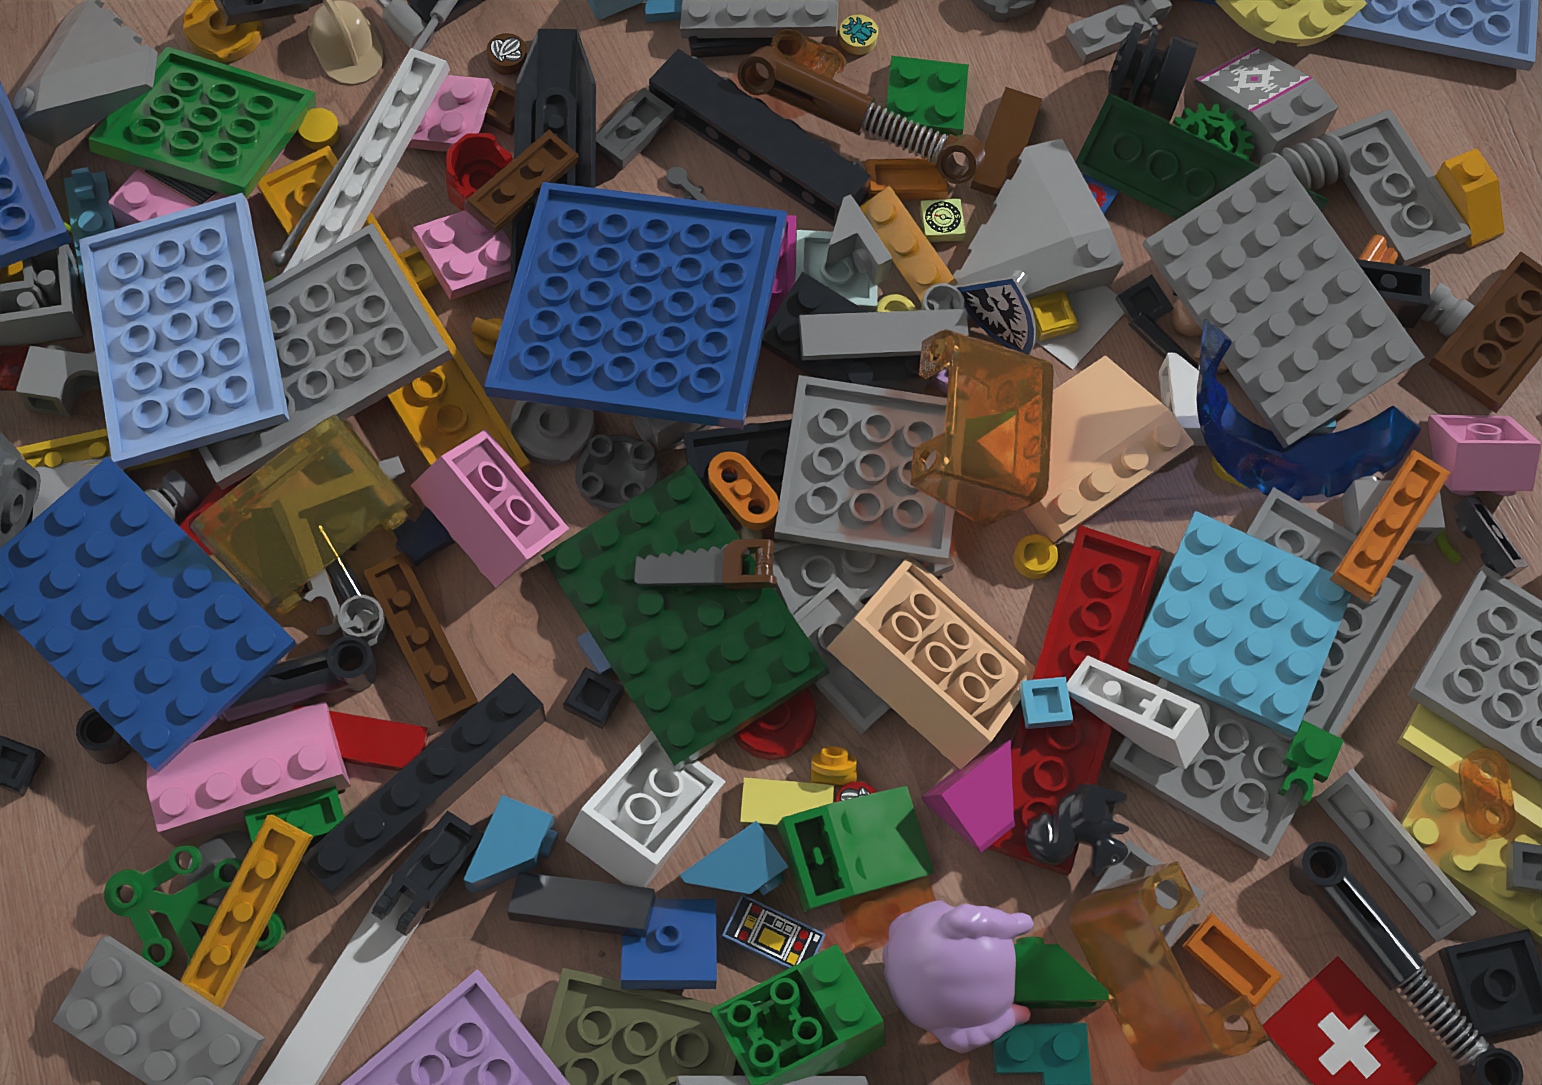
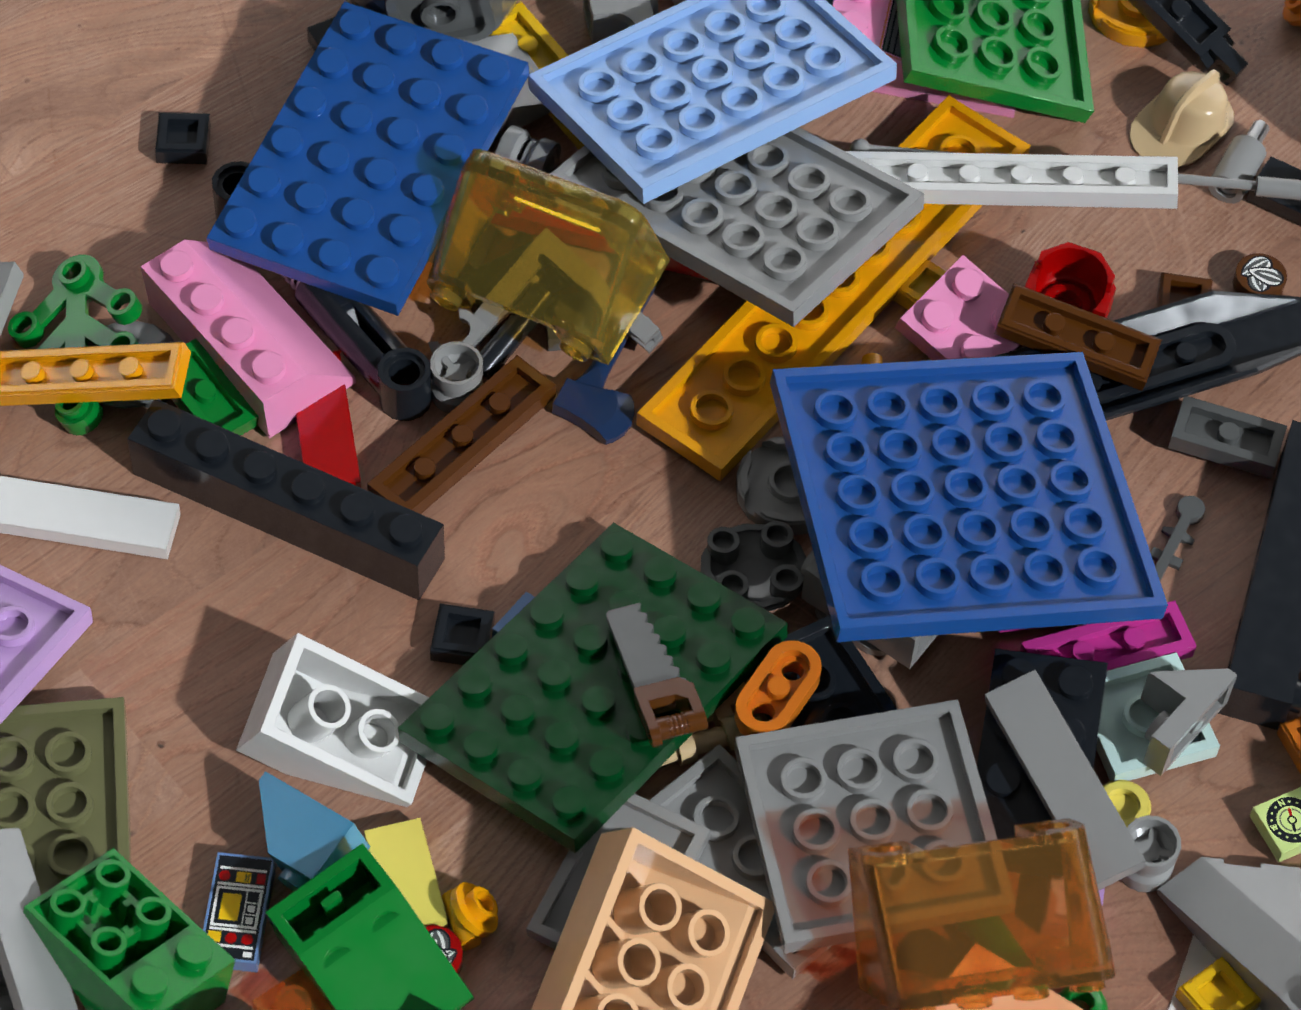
camera: 75 degrees right, 10 degrees down
(319, 129) = (1053, 134): yellow tile -> none
(430, 870) = (188, 531): black hinge -> none
(453, 113) = (1141, 243): bright pink plate -> none
(489, 507) = (643, 443): bright pink slope -> none
(511, 844) = (248, 600): dark azure slope -> none
(581, 904) = (203, 694): black tile -> none
(676, 950) = (187, 797): blue plate -> none
(781, 730) = (504, 845): red tile -> none
(906, 243) = (1230, 787): light orange plate -> none
(1002, 310) = (1184, 920): shield -> none

